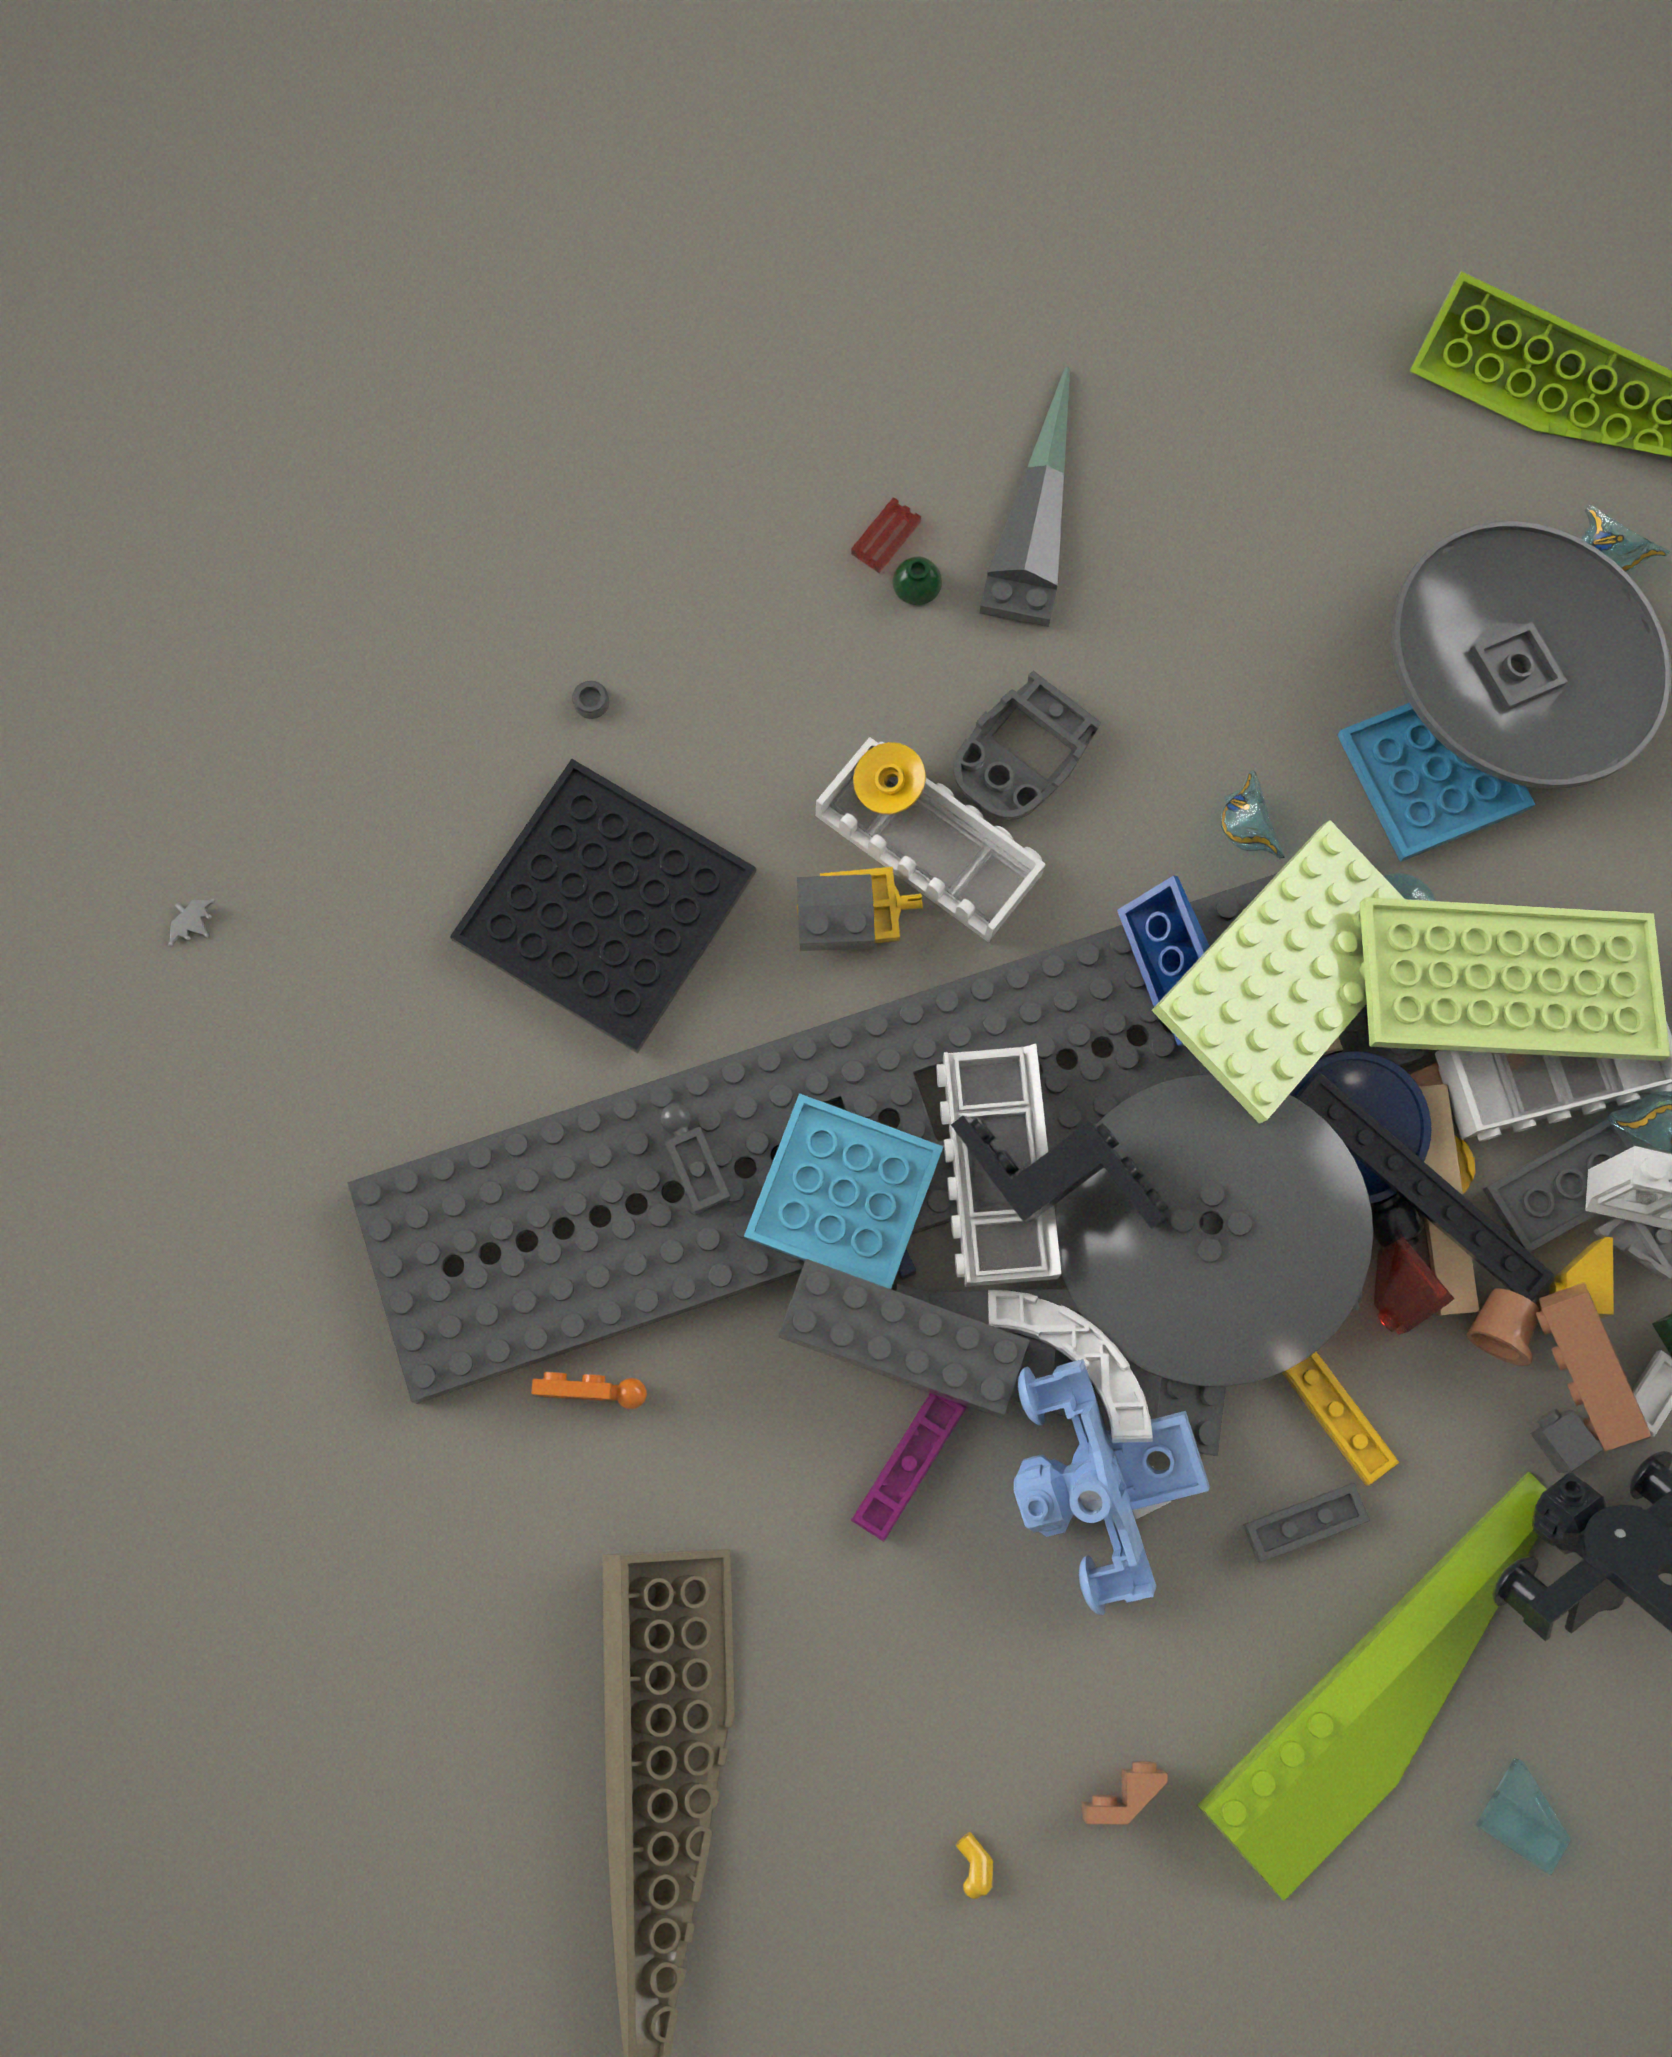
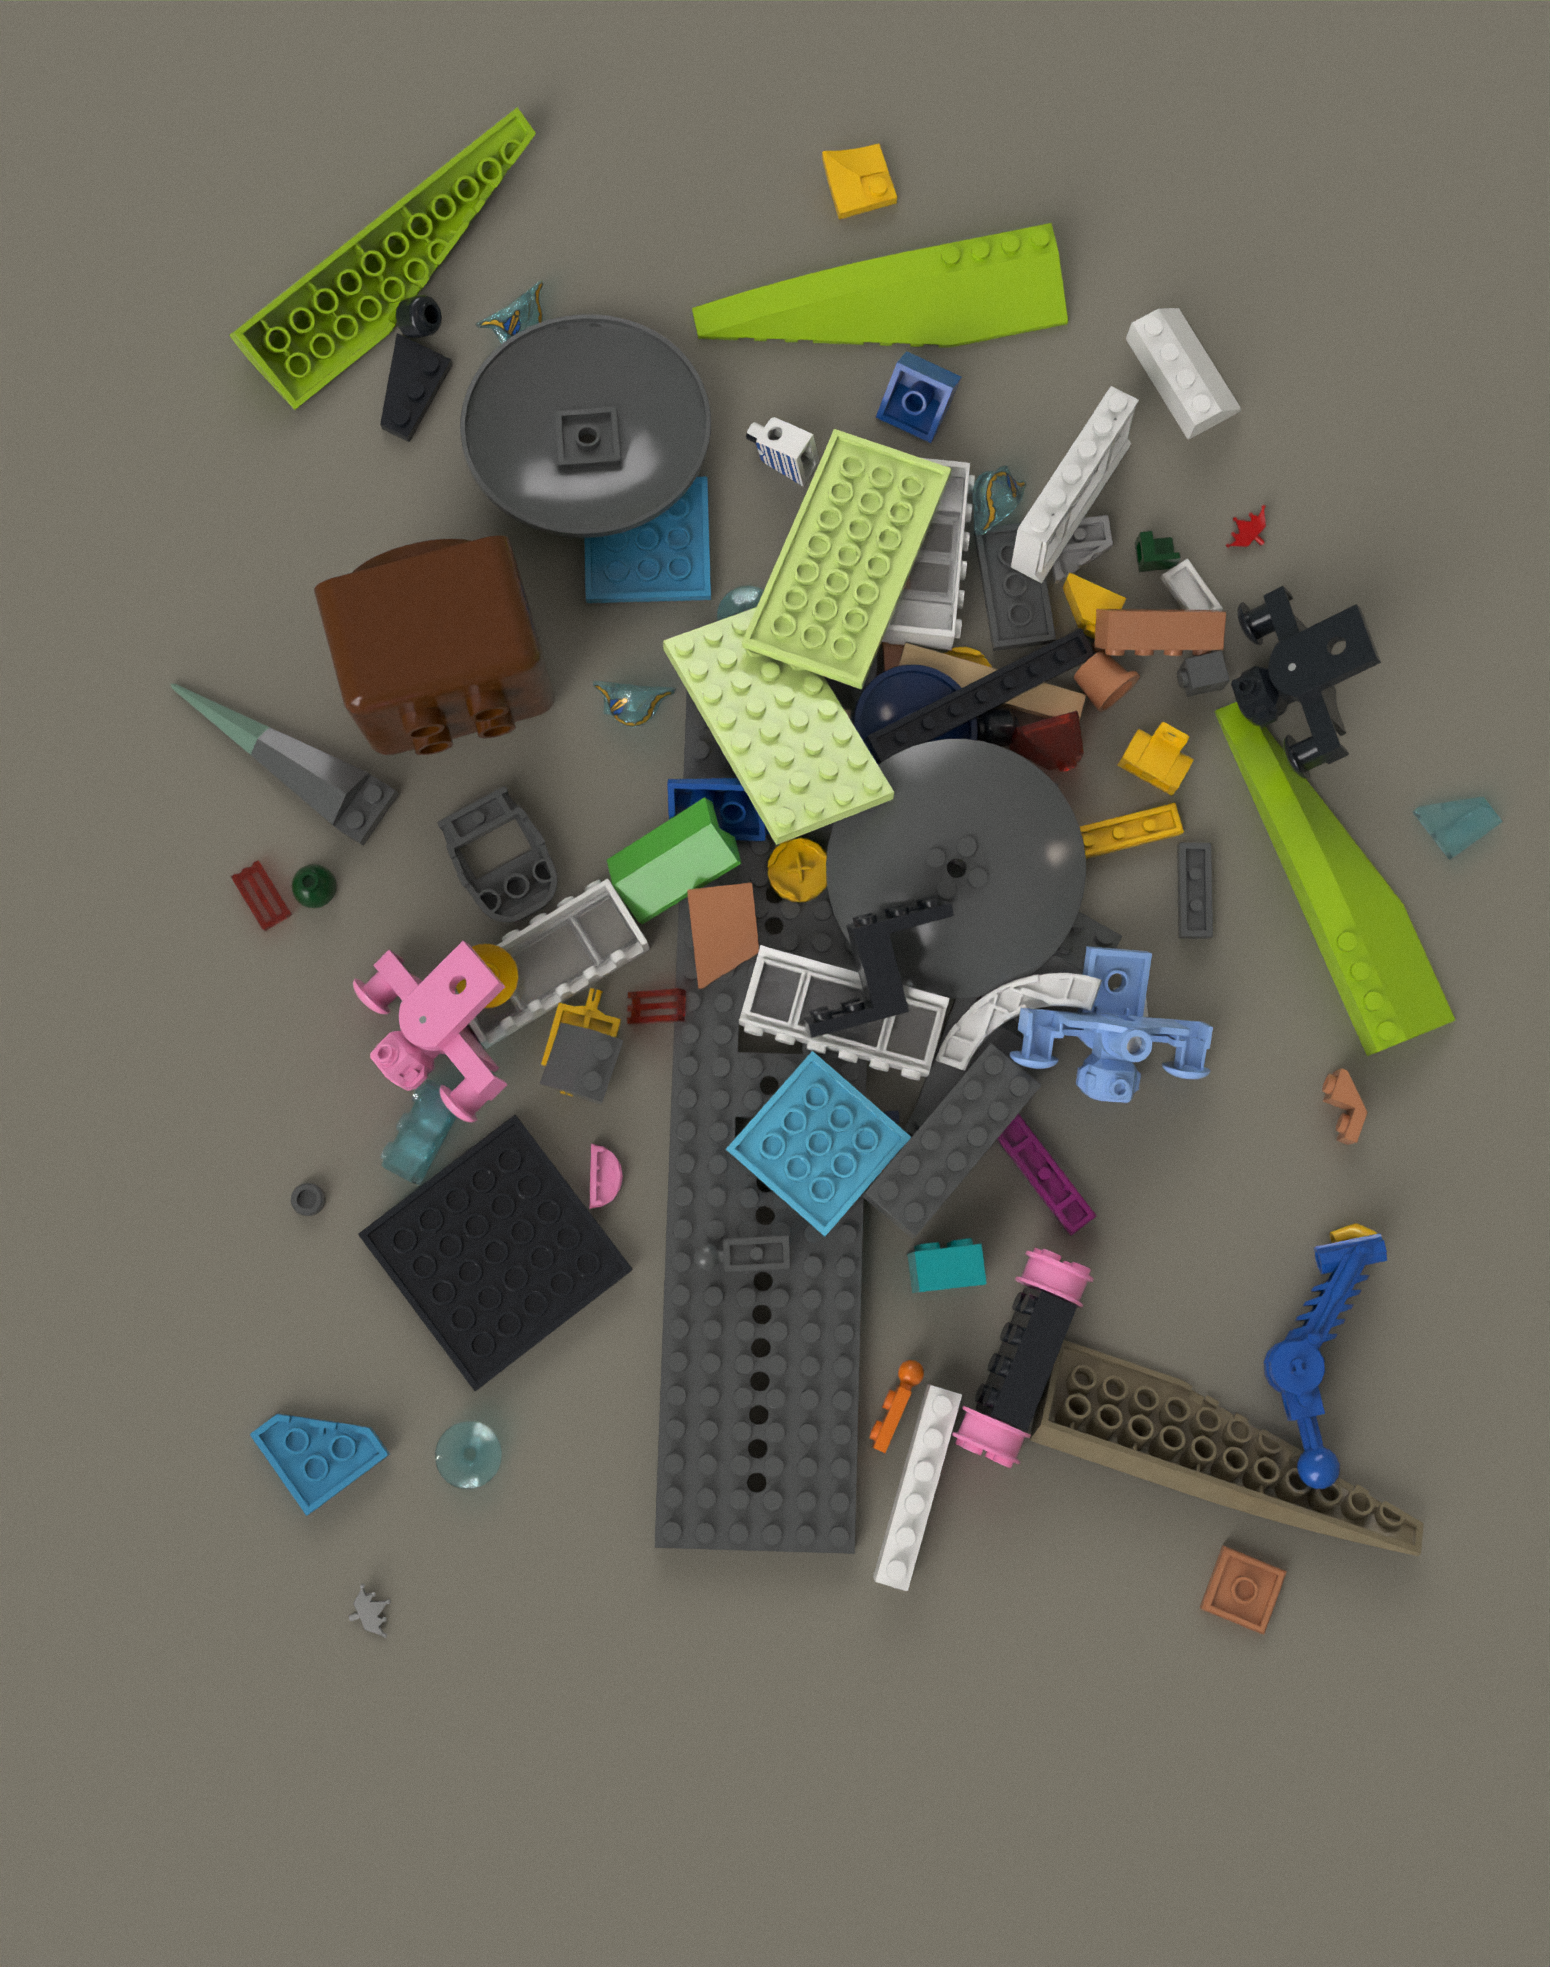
camera: 75 degrees left, 5 degrees up
(331, 807) = (317, 1455): none -> dark azure plate
(373, 941) = (451, 1459): none -> clear light blue dish
(507, 1445) = (917, 1487): none -> white brick
(519, 1872) = (1243, 1589): none -> nougat tile
(690, 1515) = (1024, 1358): none -> black brick
(700, 782) = (419, 1135): none -> clear light blue slope
(725, 987) = (605, 1176): none -> bright pink tile
(757, 1383) = (948, 1267): none -> teal brick
(800, 1840) = (1297, 1365): none -> blue piece
(814, 741) = (436, 1023): none -> bright pink piece
(921, 951) = (636, 1006): none -> clear red tile
(1037, 999) = (722, 929): none -> nougat slope
(1091, 922) = (671, 860): none -> bright green slope
(1138, 1058) = (798, 870): none -> yellow tile
(1218, 580) = (435, 644): none -> reddish brown piece
(1442, 1421) = (1158, 757): none -> yellow piece
(1489, 473) = (411, 386): none -> black wing
(1567, 448) = (418, 316): none -> black head
(1606, 872) = (785, 448): none -> white torso

